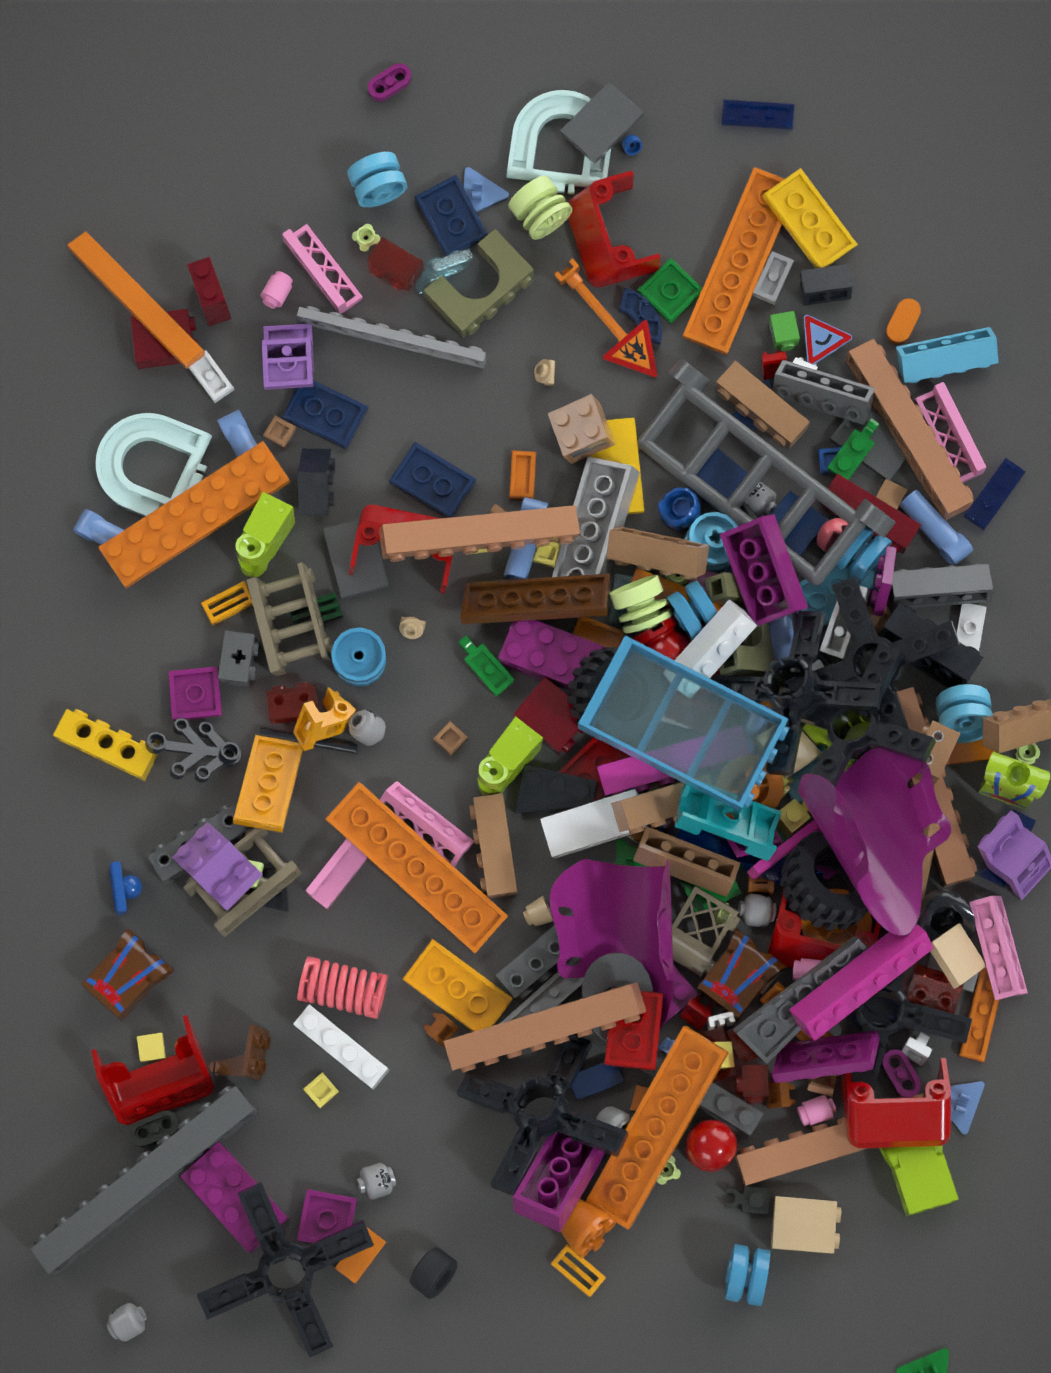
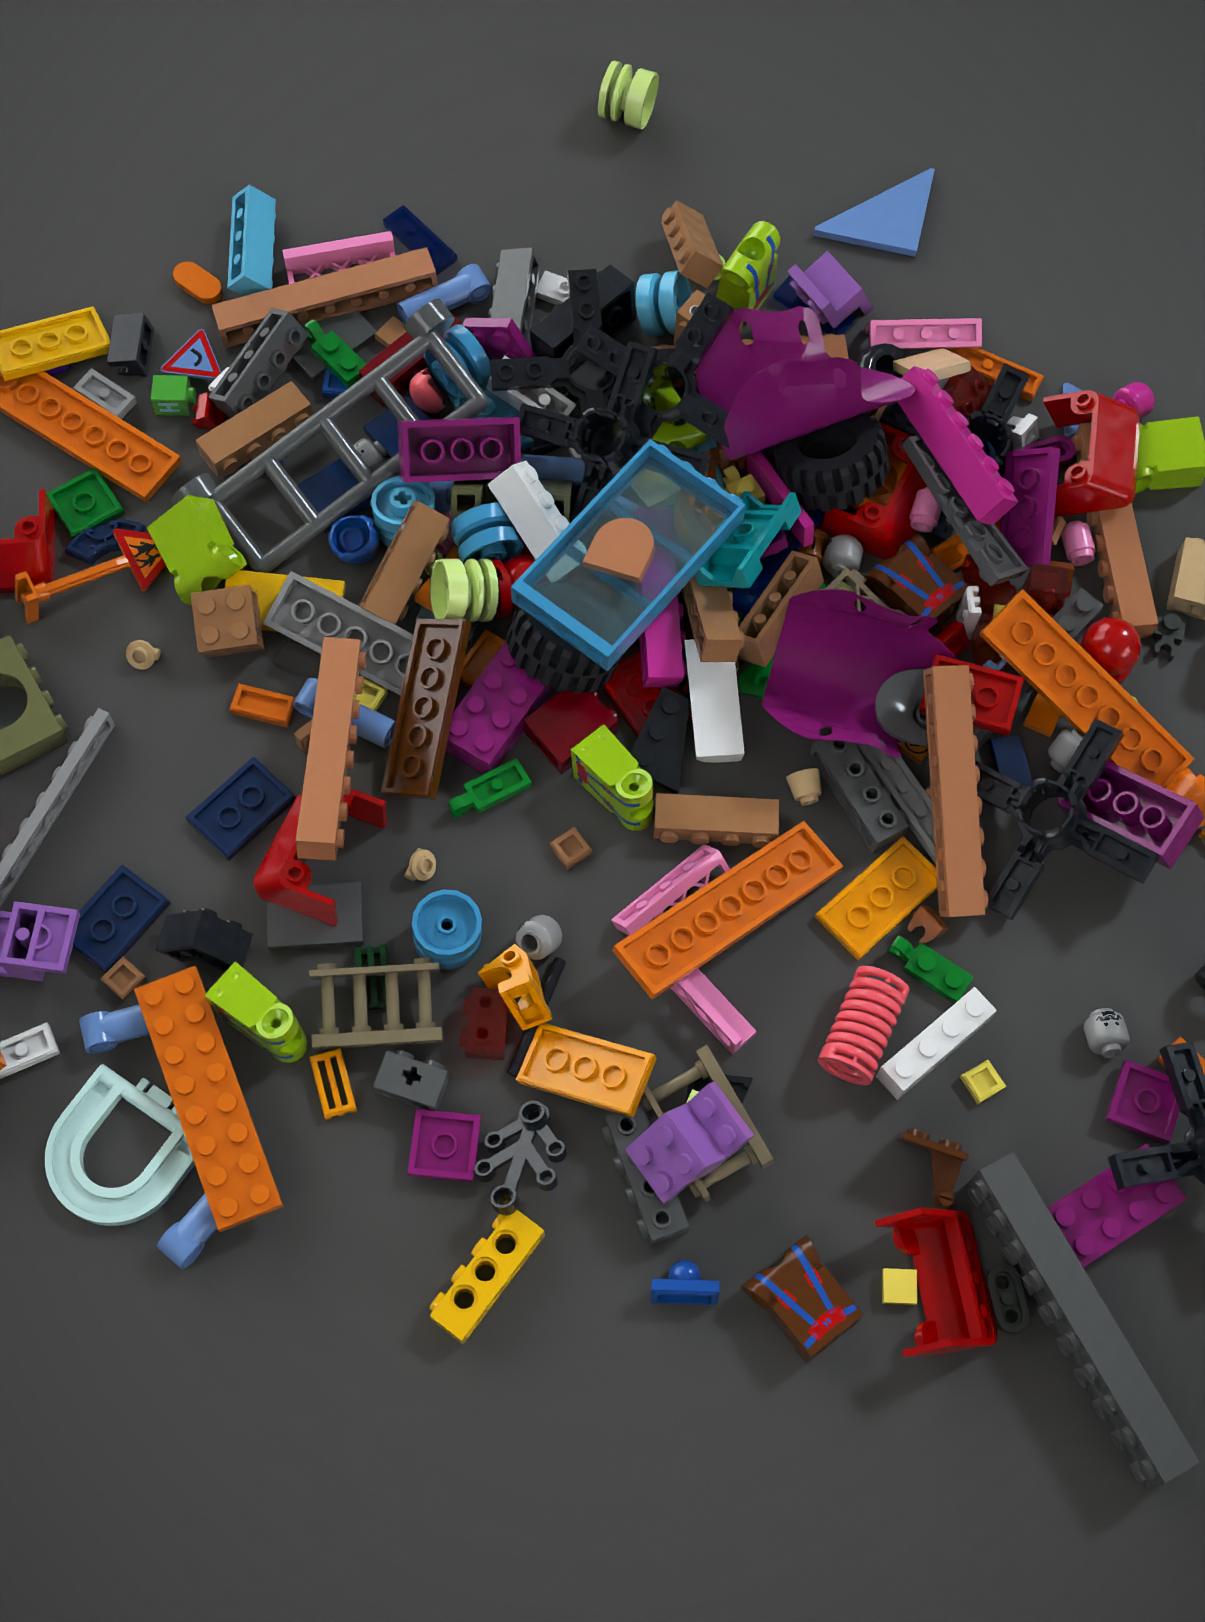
camera: 85 degrees left, 10 degrees down
(404, 1039) = (932, 969): none -> green plate
(637, 388) = (195, 546): none -> lime piece
(677, 715) = (621, 549): none -> nougat tile
(971, 1143) = (1138, 396): none -> dark pink head

